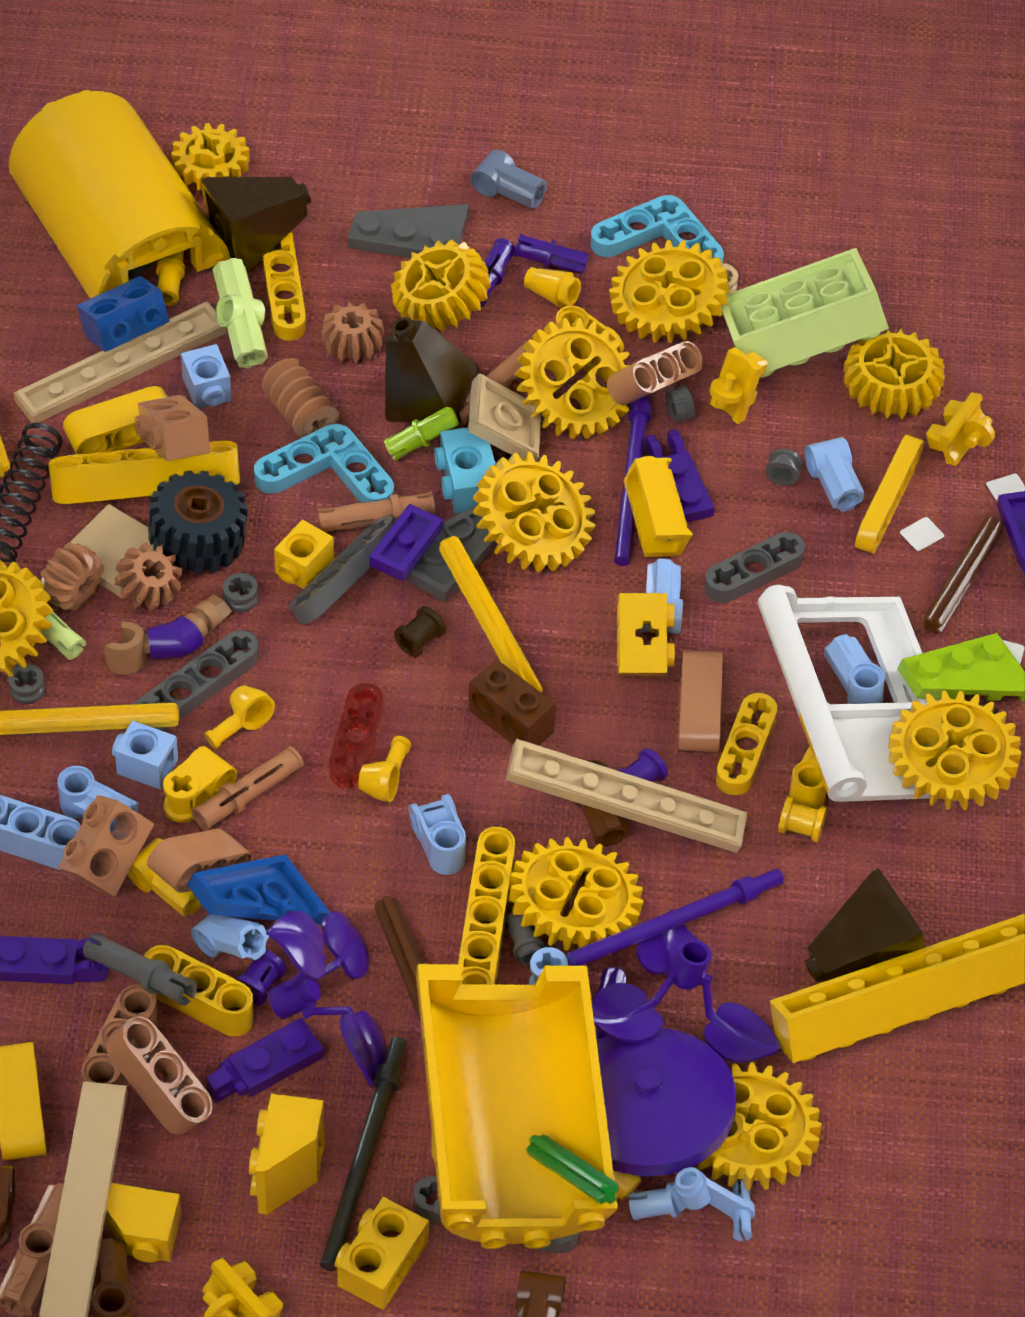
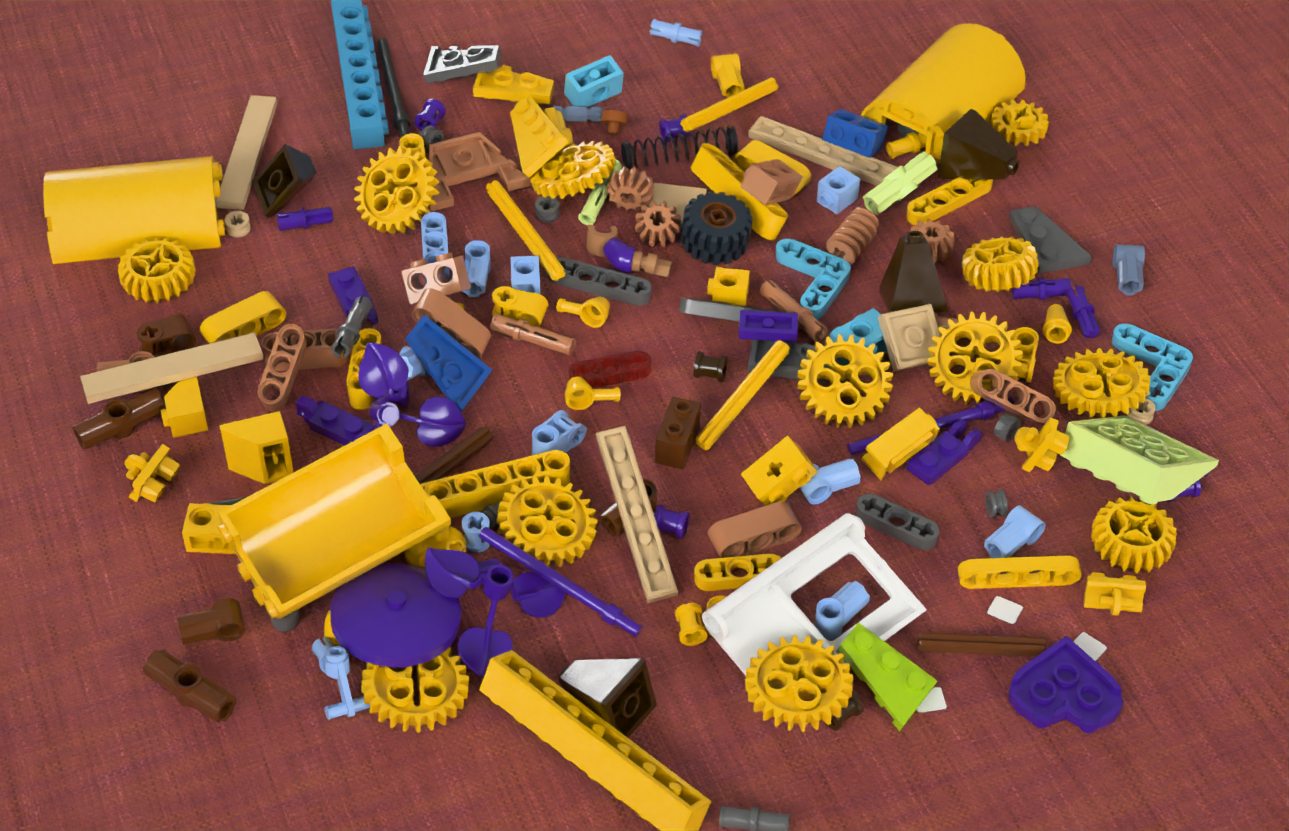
camera: 65 degrees right, 5 degrees down
(247, 585) = (683, 268): dark grey bush -> none
(421, 433) = (867, 301): lime axle -> none
(572, 1169) = (301, 580): green axle -> none

